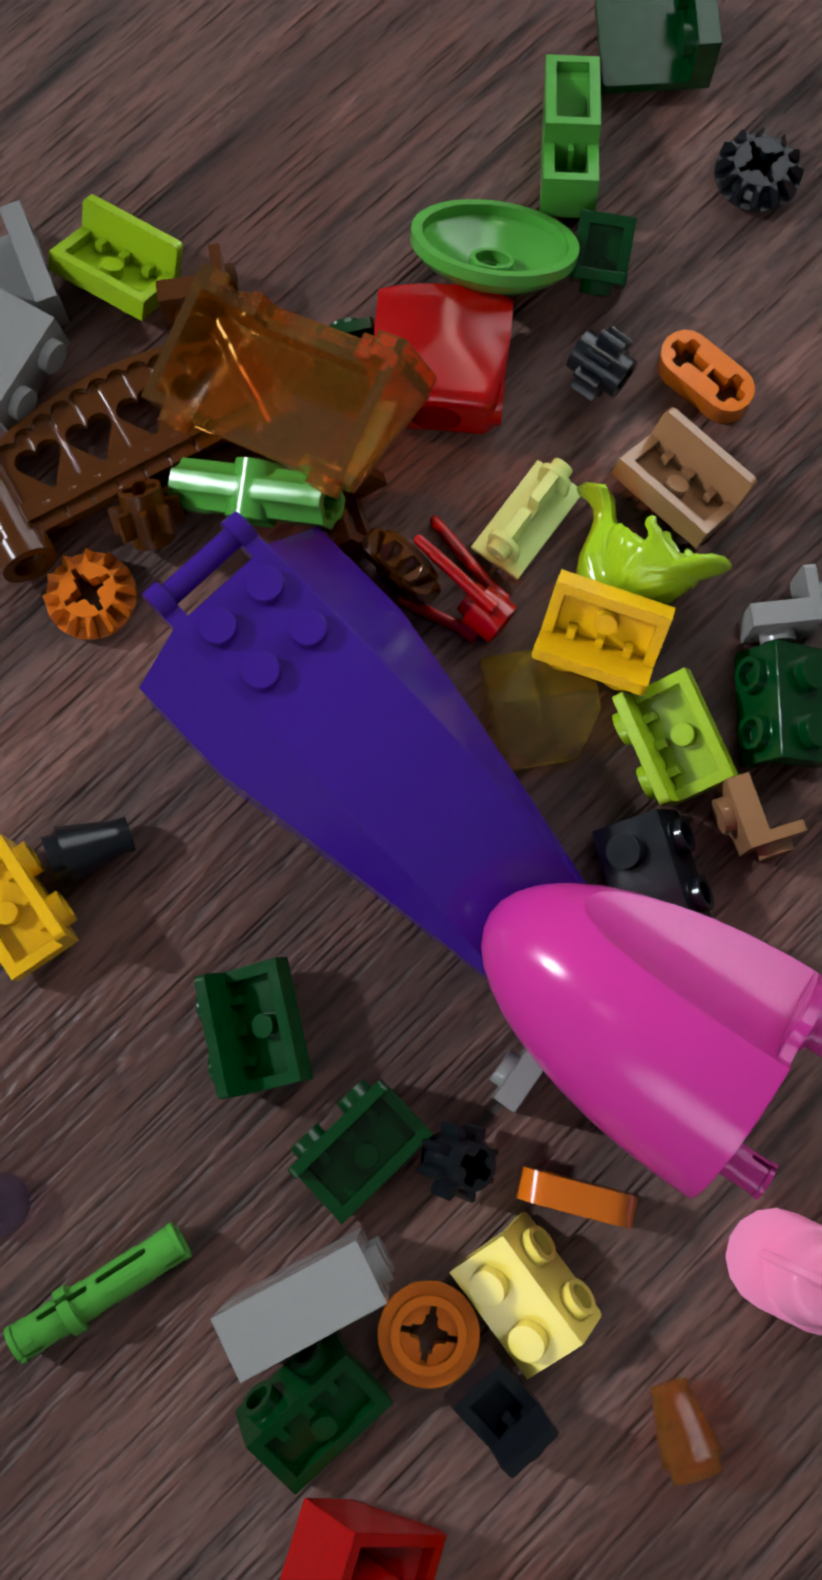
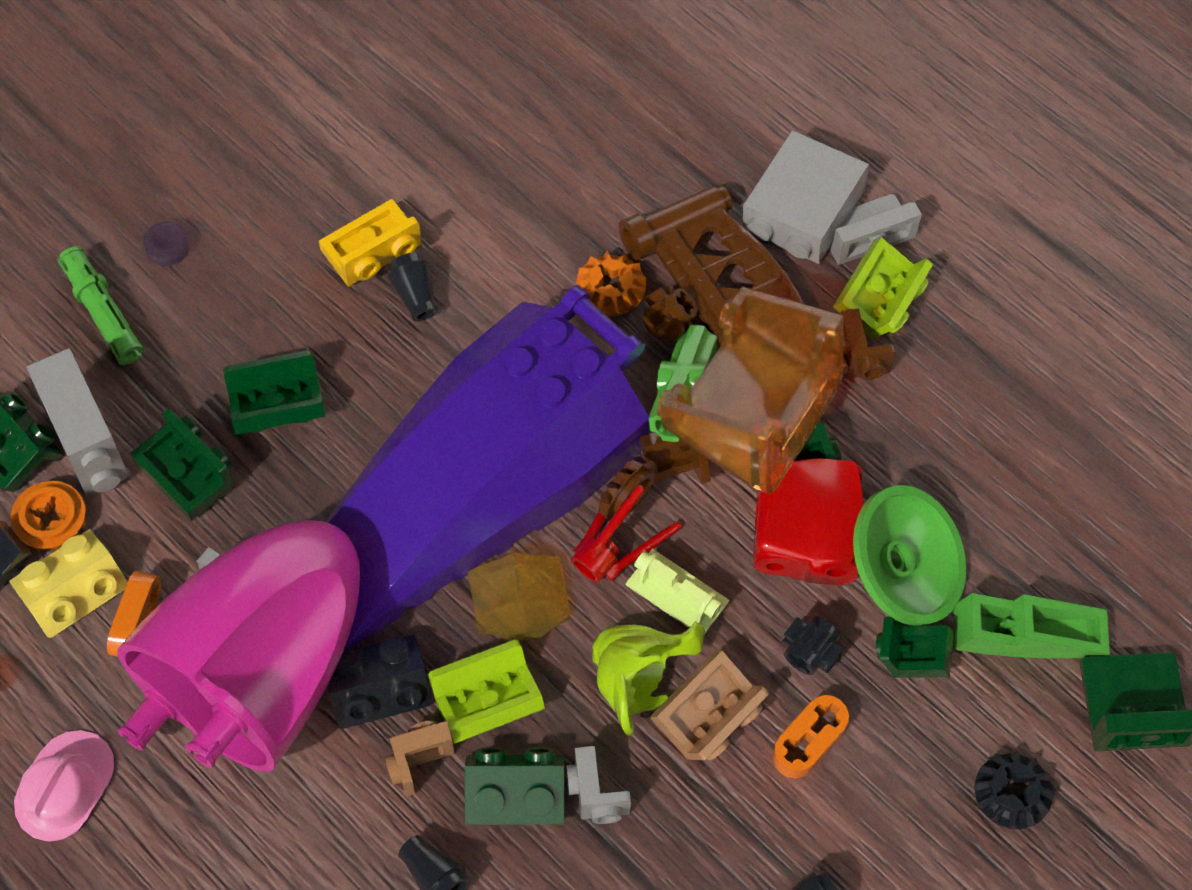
camera: 85 degrees right, 15 degrees down
(458, 1161) = (155, 532): black gear -> none
(602, 633) = (568, 633): yellow bracket -> none

